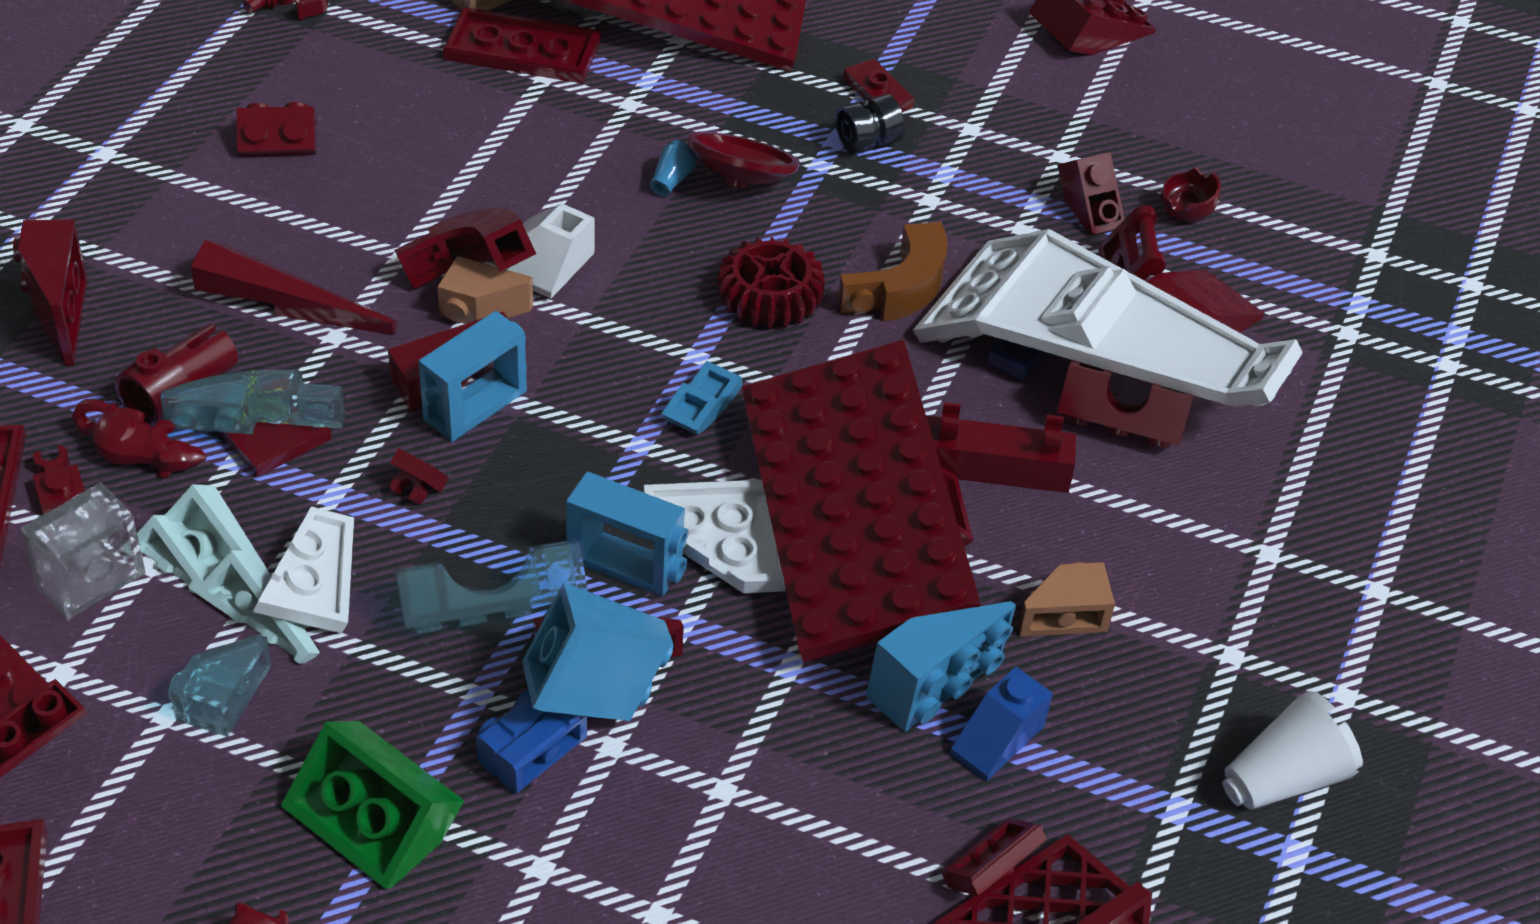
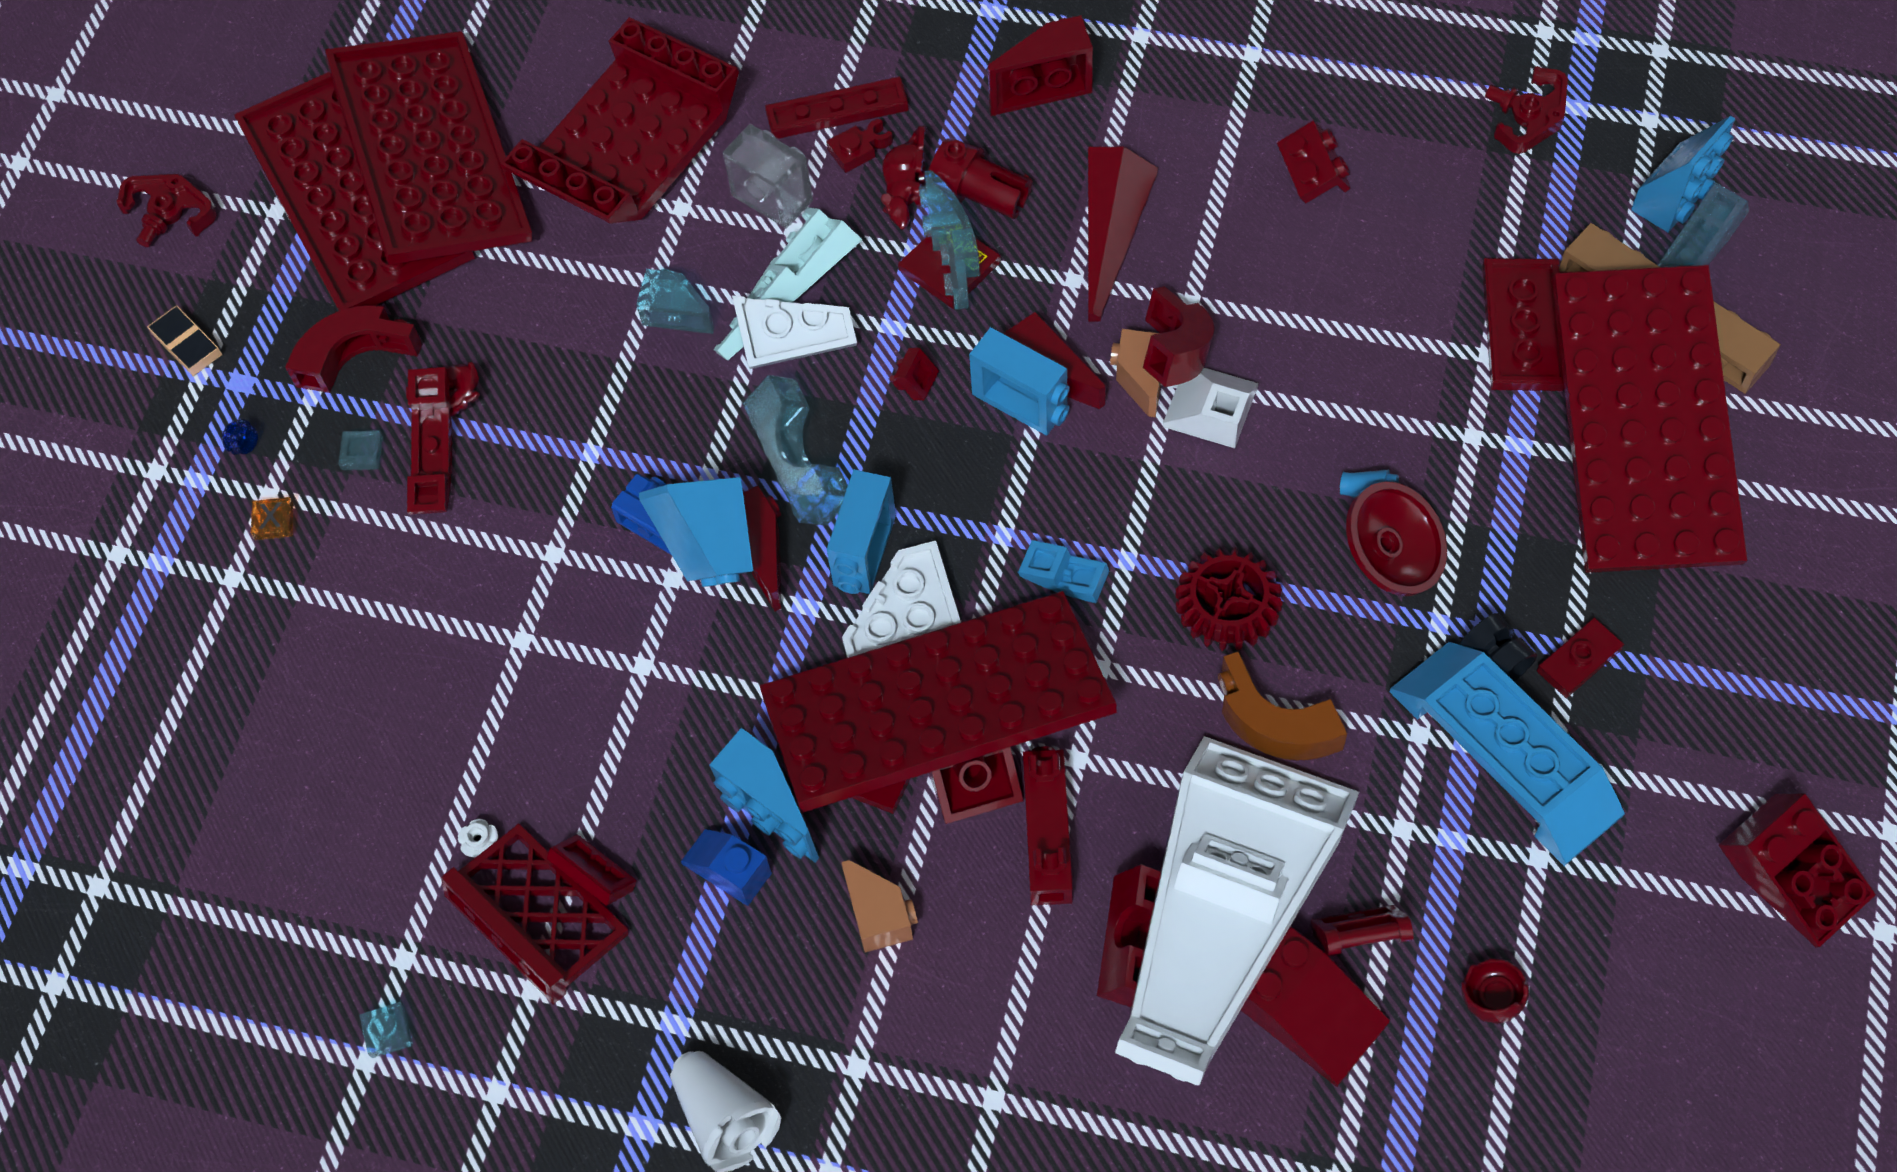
camera: 90 degrees right, 15 degrees up
(370, 801) = (586, 425): green slope -> none
(950, 129) = (1515, 745): none -> dark azure slope
(1092, 192) = (1465, 887): dark red slope -> none

